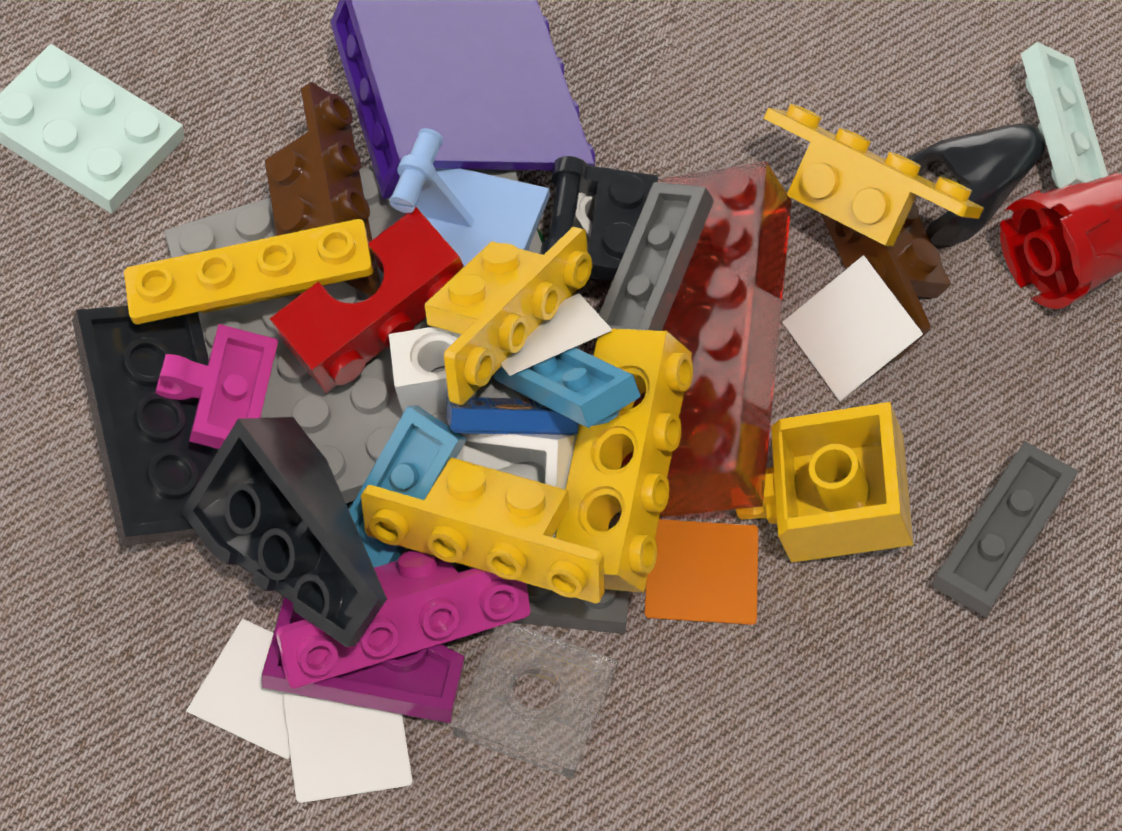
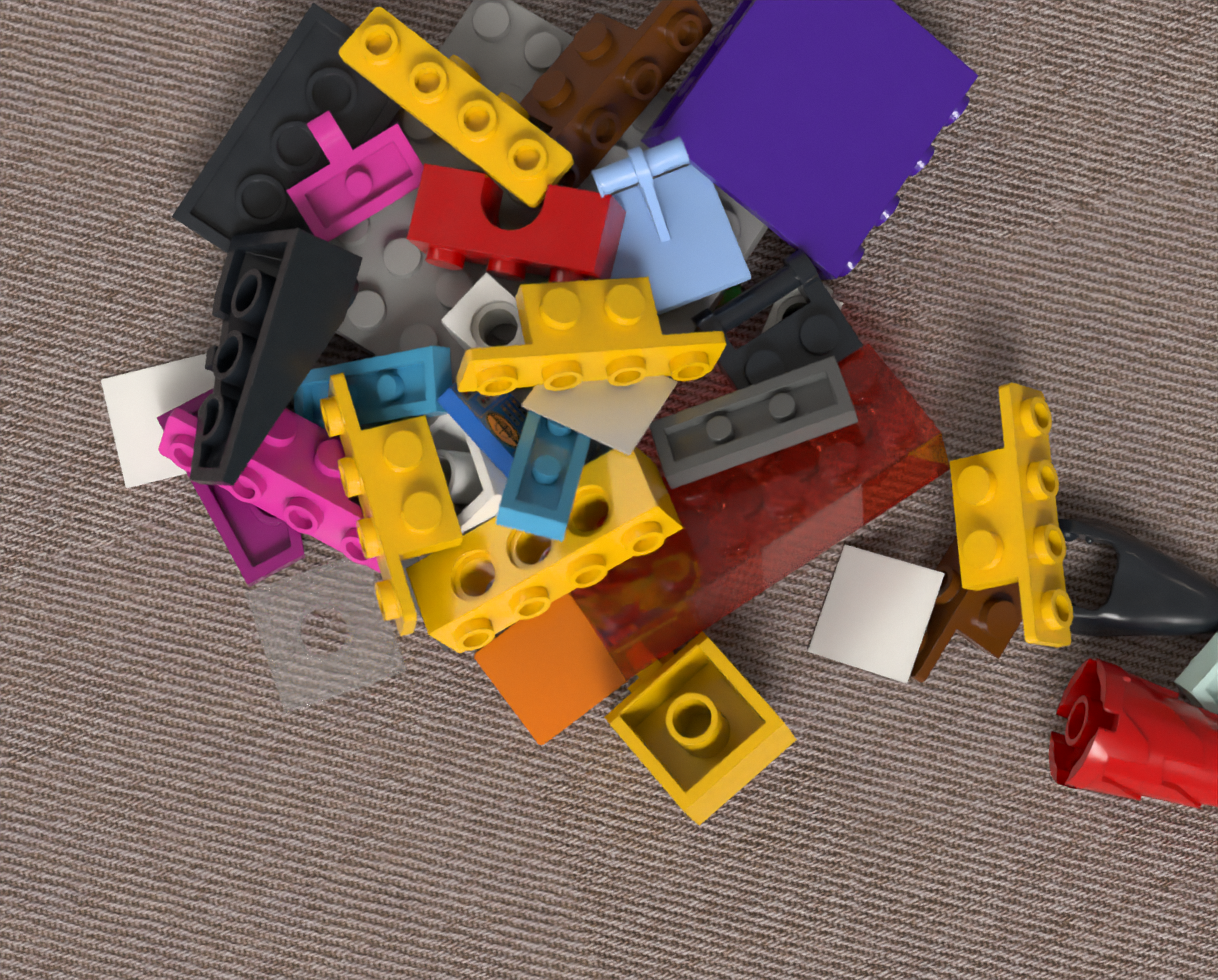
camera: 55 degrees right, 25 degrees up
(343, 748) = (165, 526): white sticker -> none
(1005, 529) = (790, 882): dark grey plate -> none

